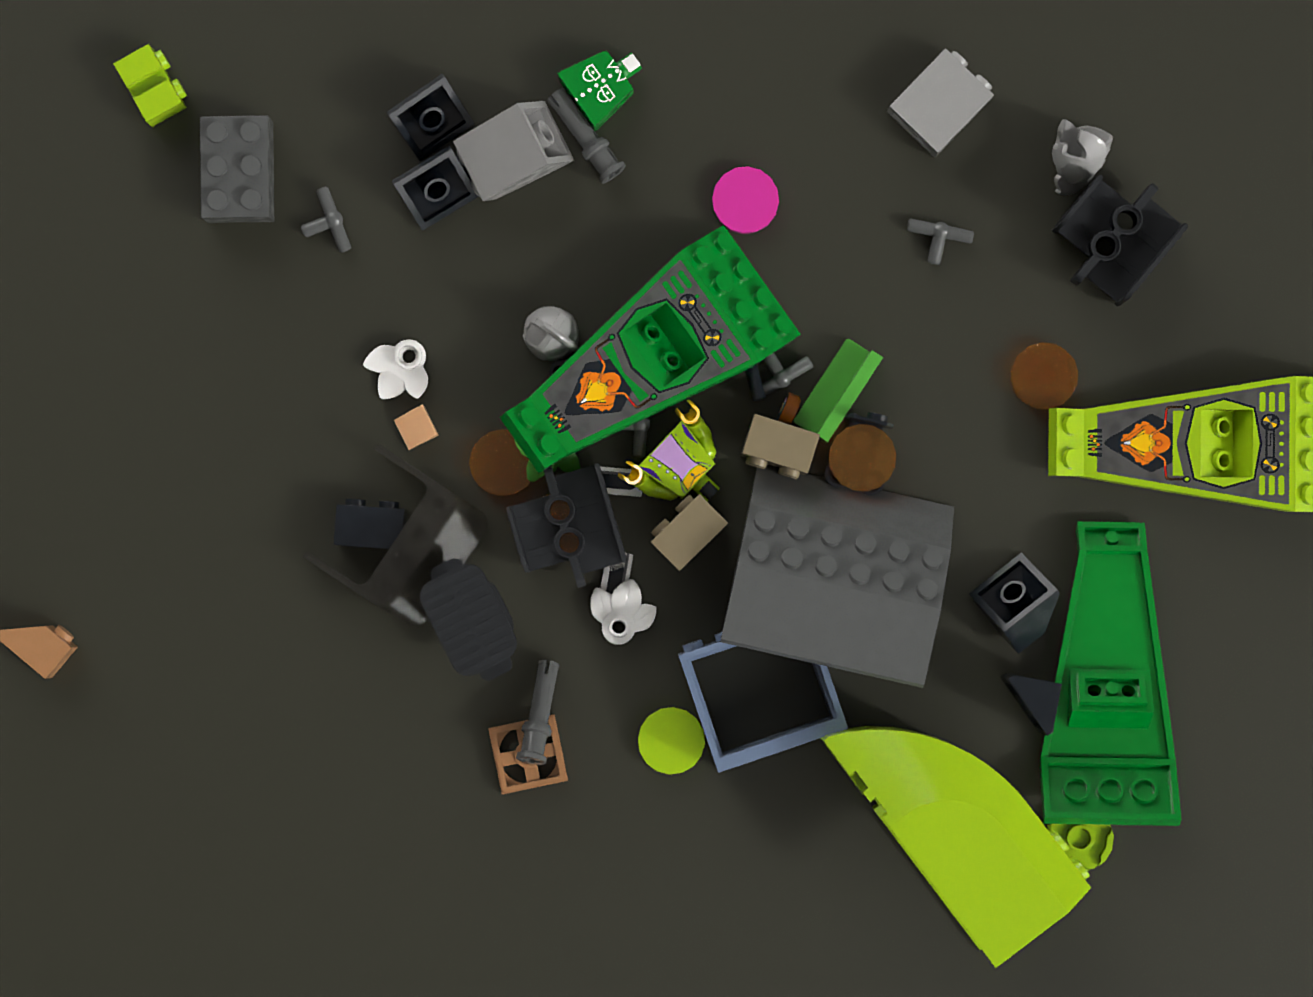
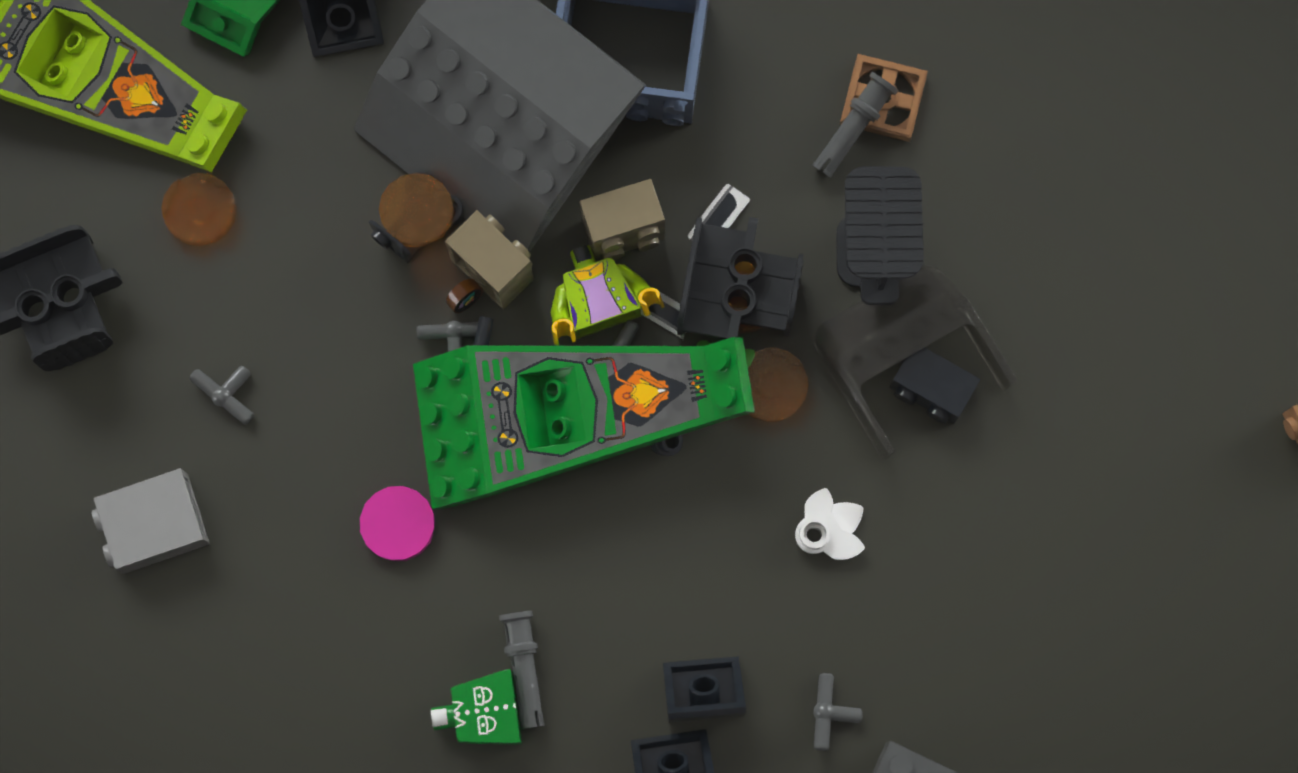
camera: 145 degrees left, 10 degrees down
(416, 427) = (840, 461): light nougat slope -> none
(512, 150) = (606, 687): light grey slope -> none
(551, 333) = (659, 484): light grey helmet -> none
(621, 606) = (722, 188): white plate -> none
(671, 740) = (739, 44): lime tile -> none
(837, 390) = (404, 290): bright green panel -> none
(1078, 155) = (43, 400): light grey helmet -> none

